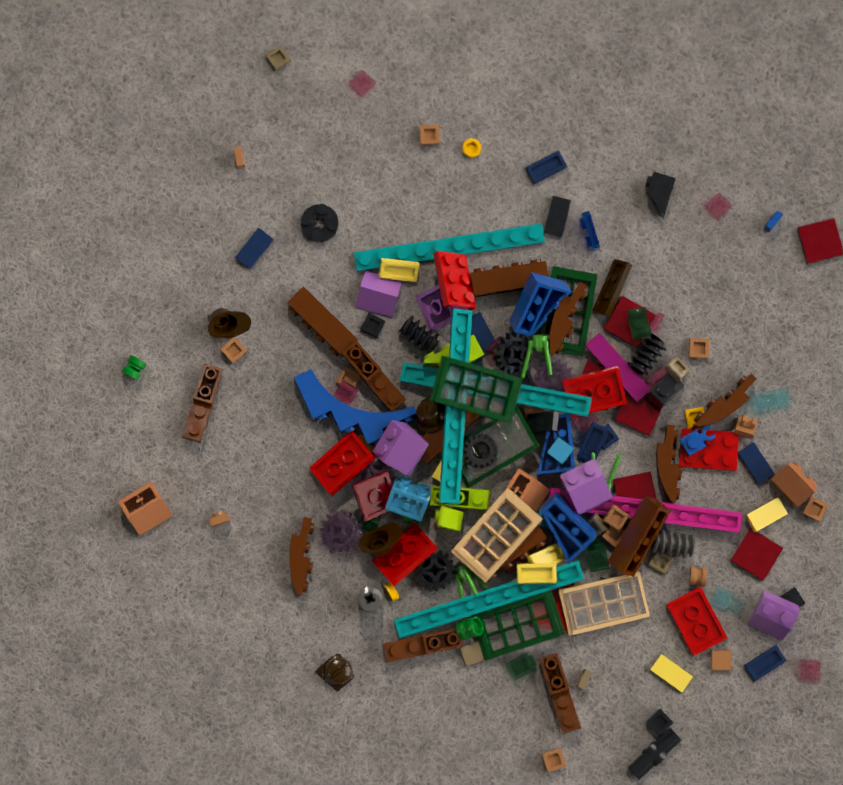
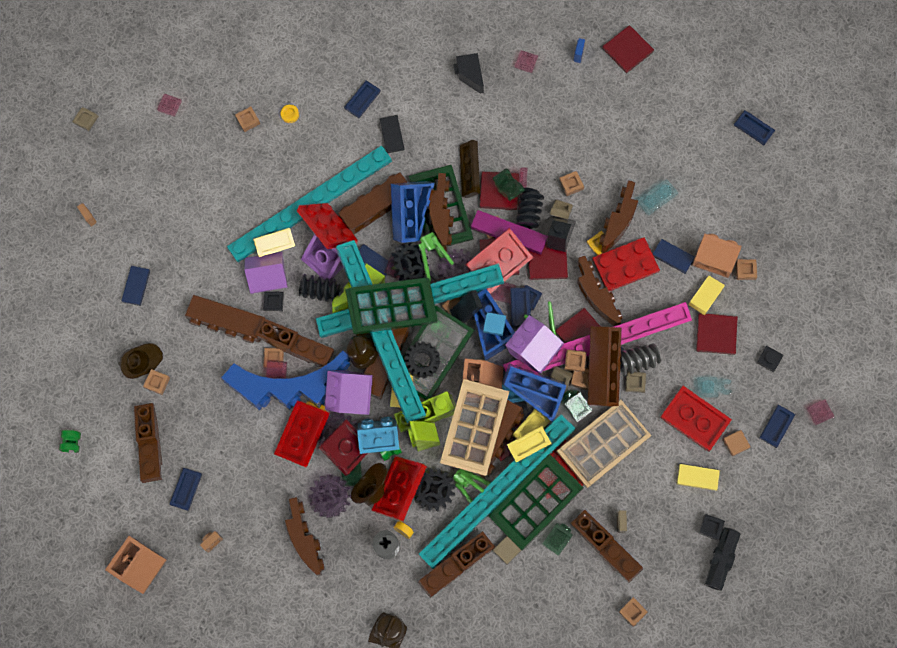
camera: 15 degrees left, 10 degrees down
(217, 461) = (185, 489): none -> dark blue tile
(308, 223) = (185, 247): black plate -> none
(469, 628) = (491, 528): green wheel -> none
(587, 224) = (430, 135): clear blue plate -> none
(656, 376) = (545, 227): clear pink tile -> none
(694, 441) = (609, 261): blue plate -> none
(697, 576) = (675, 378): medium nougat wheel -> none
(745, 426) = (647, 229): medium nougat tile -> none
(774, 615) = (762, 379): medium lavender slope -> none

